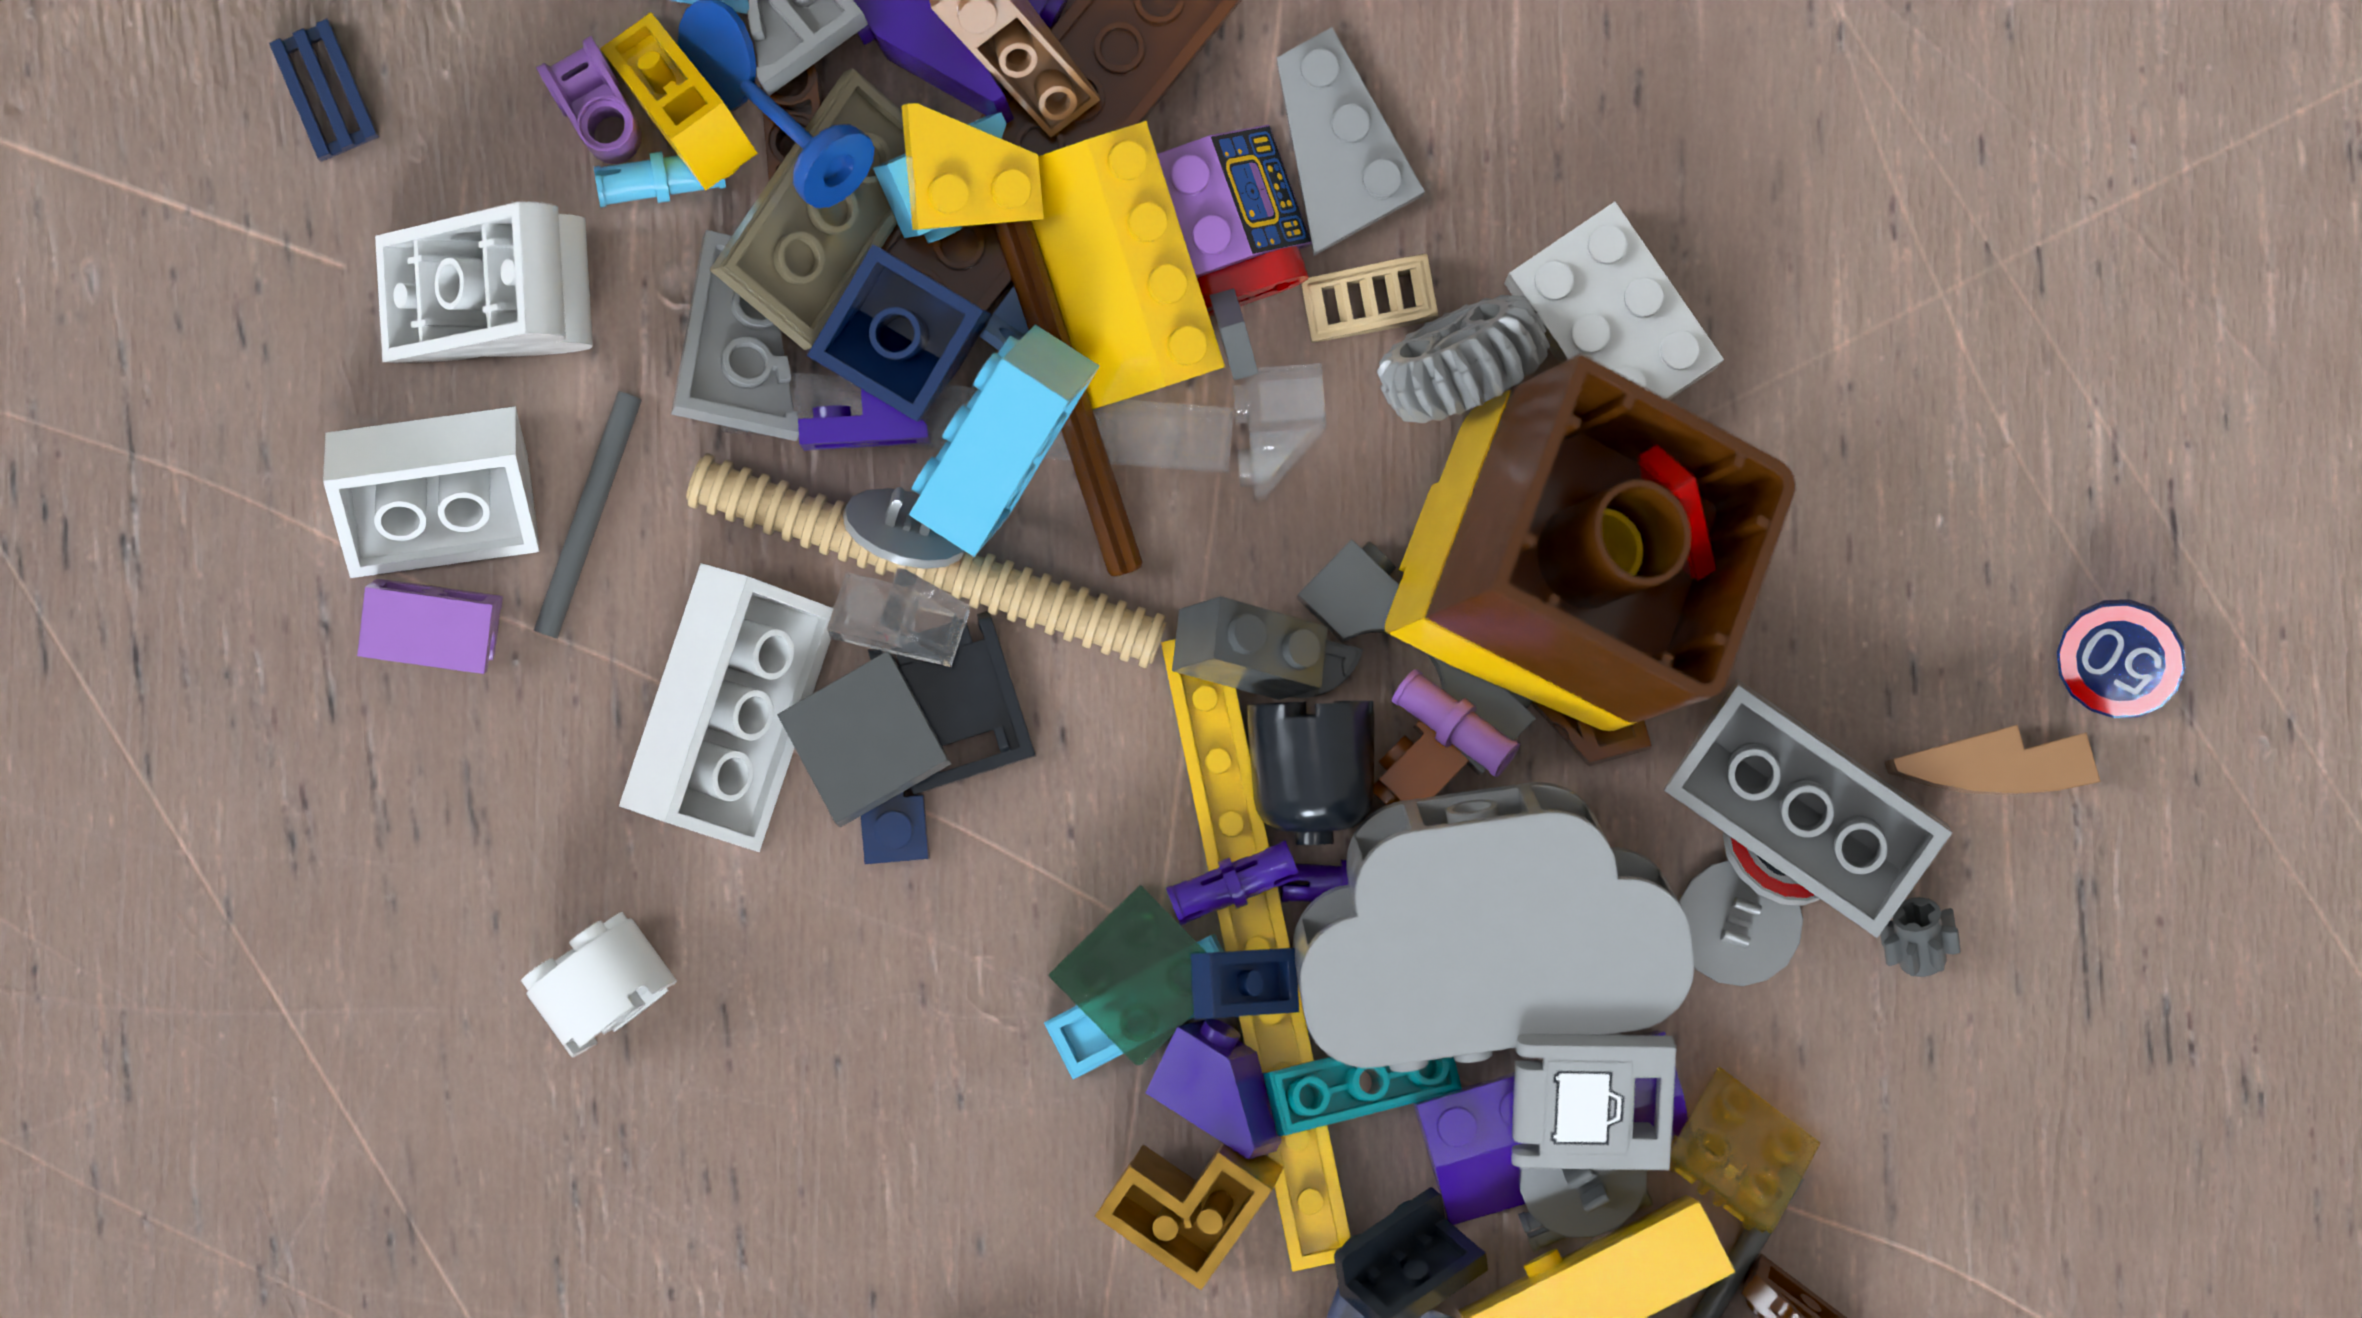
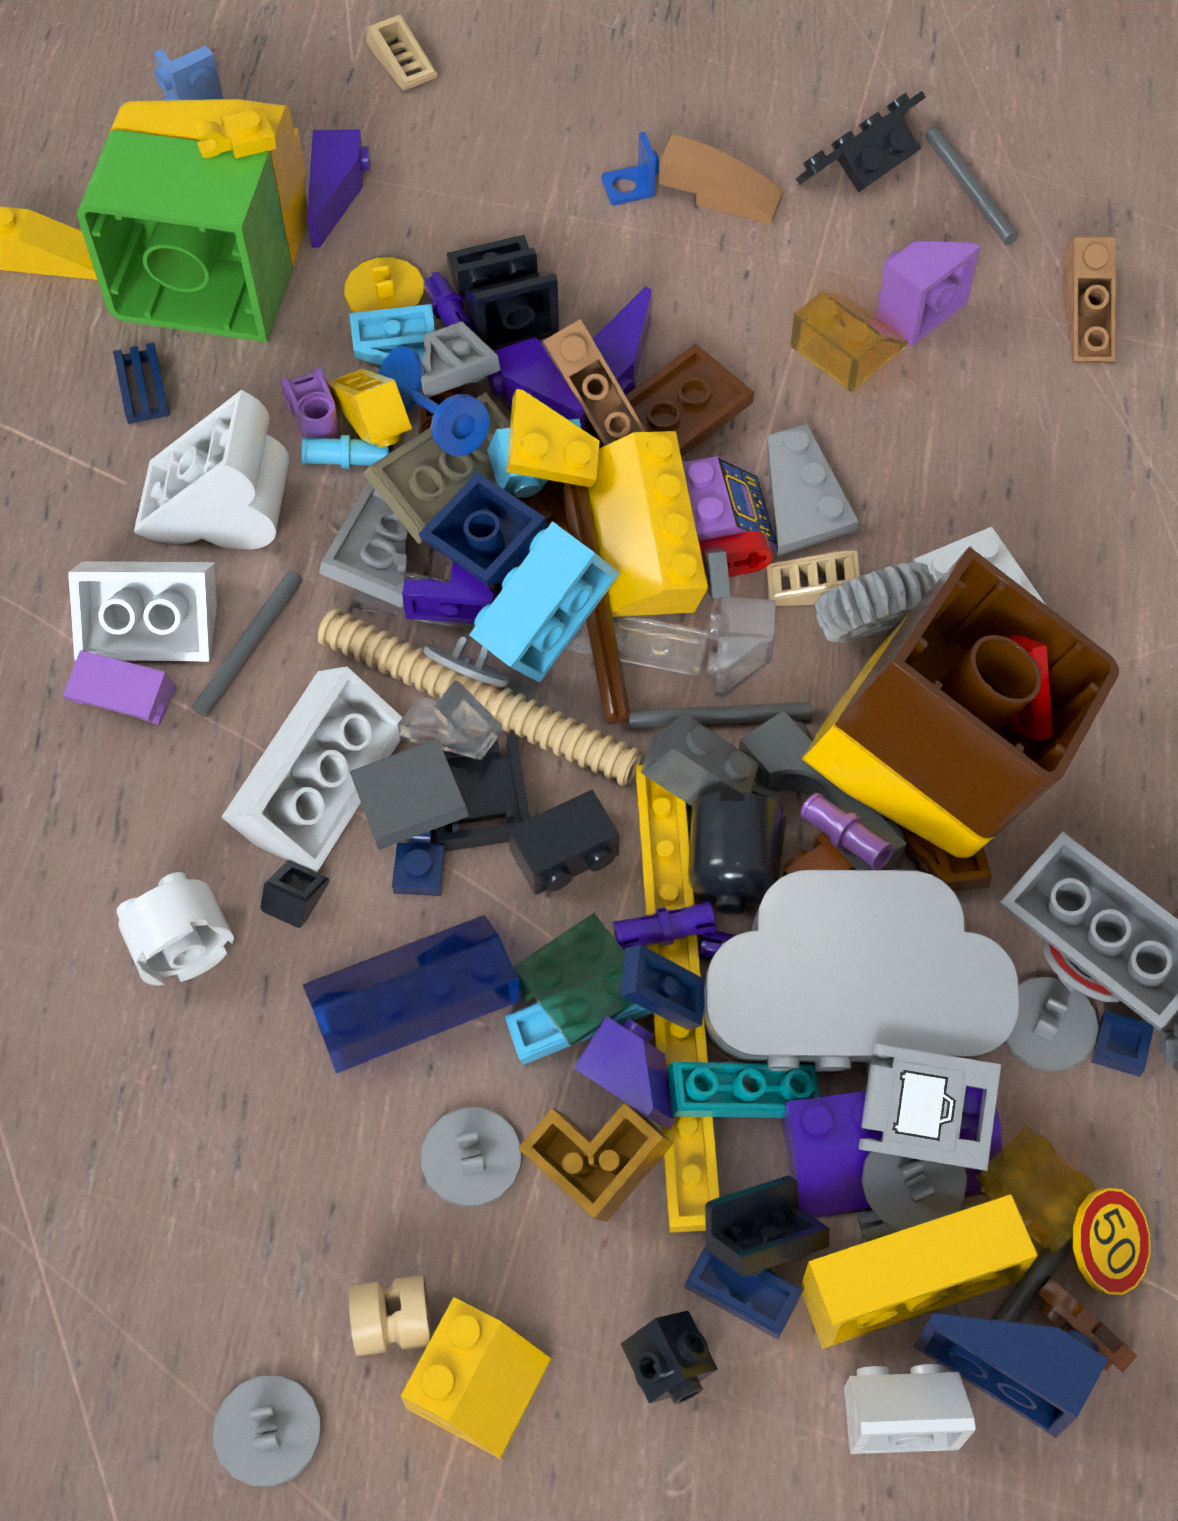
camera: 10 degrees right, 25 degrees down
(735, 886) = (292, 893): none -> black slope
(915, 1004) = (412, 992): none -> clear blue slope
(1032, 1208) = (471, 1157): none -> light grey piece
(1083, 771) = (564, 843): none -> black brick
(1265, 534) = (720, 714): none -> dark grey bar
(1828, 1209) = (1111, 1241): none -> piece
(1831, 941) = (1122, 1043): none -> dark blue tile

